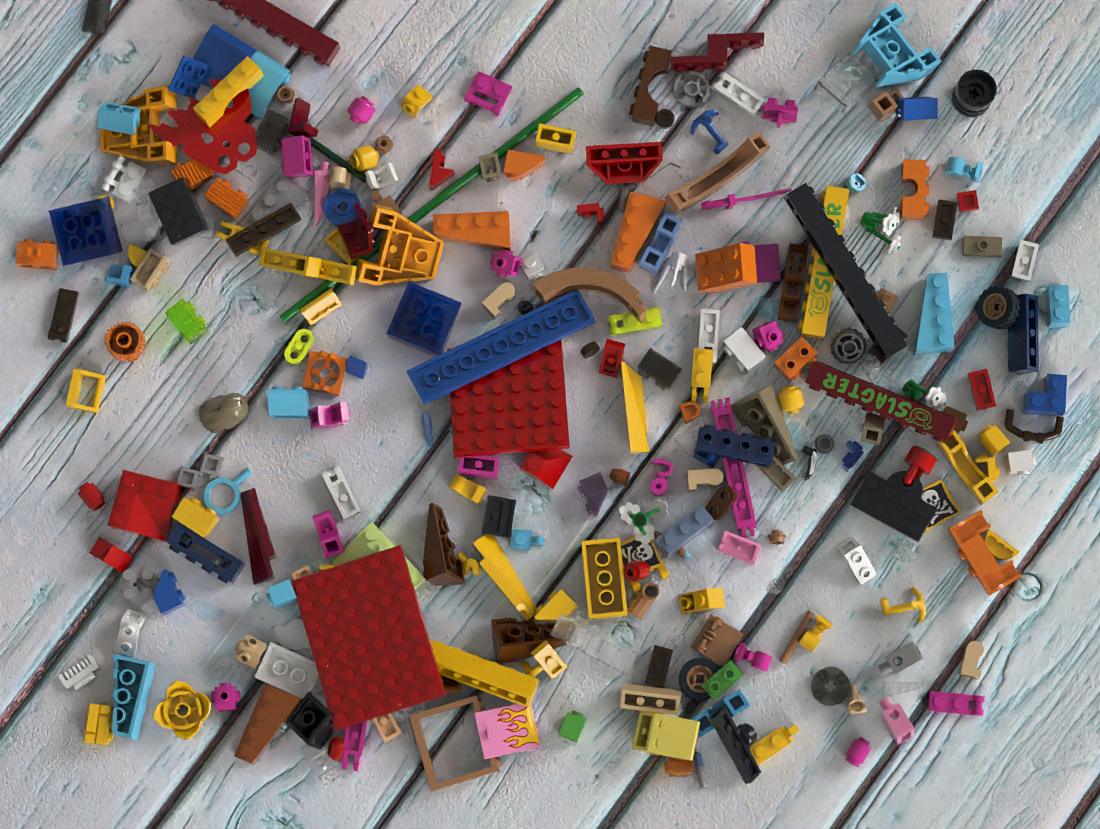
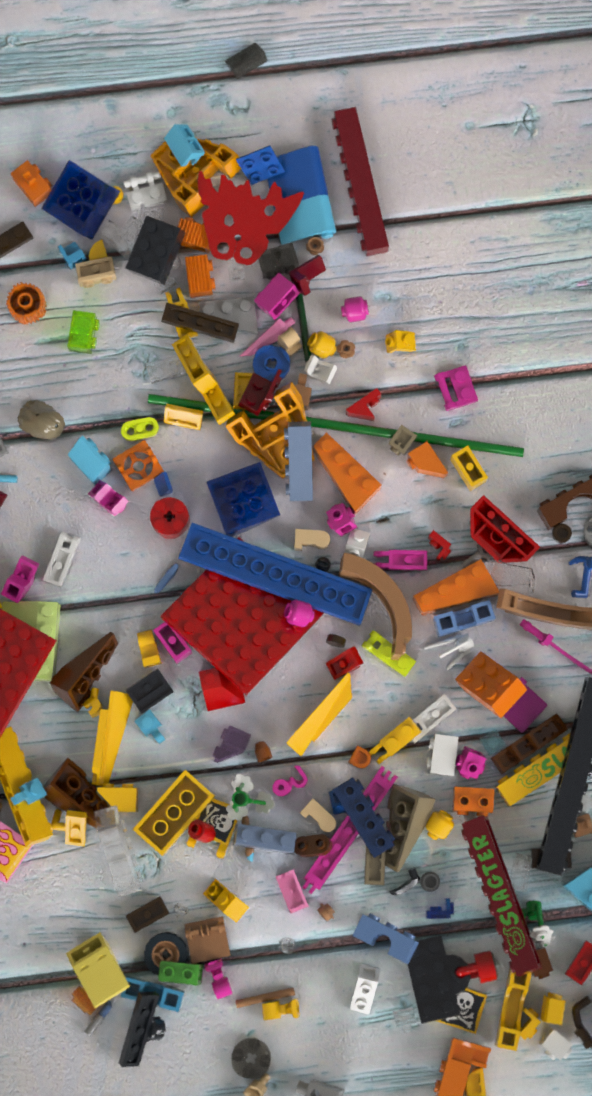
camera: 40 degrees right, 0 degrees up
(215, 102) = (293, 201): yellow arch -> none
(385, 395) = (162, 510): none -> red brick
(436, 252) = (300, 461): none -> sand blue brick
(492, 667) = (30, 792): none -> medium azure plate
(545, 355) = (299, 613): none -> dark pink head
(572, 726) = (41, 893): bright green brick -> none
(577, 247) = (403, 559): none -> dark pink hinge
(643, 602) = (184, 857): medium nougat piece -> none
(650, 699) = (116, 931): tan brick -> none
(659, 369) = (369, 705): clear smoke brick -> none
(688, 437) = (339, 775): clear slope -> none
(772, 743) = (168, 1054): yellow hinge -> none
(819, 515) = (402, 945): none -> medium blue arch
(848, 345) = (521, 830): flat silver piece -> none
(872, 429) = (474, 908): dark tan brick -> none
(915, 604) = (374, 1067): yellow piece -> none

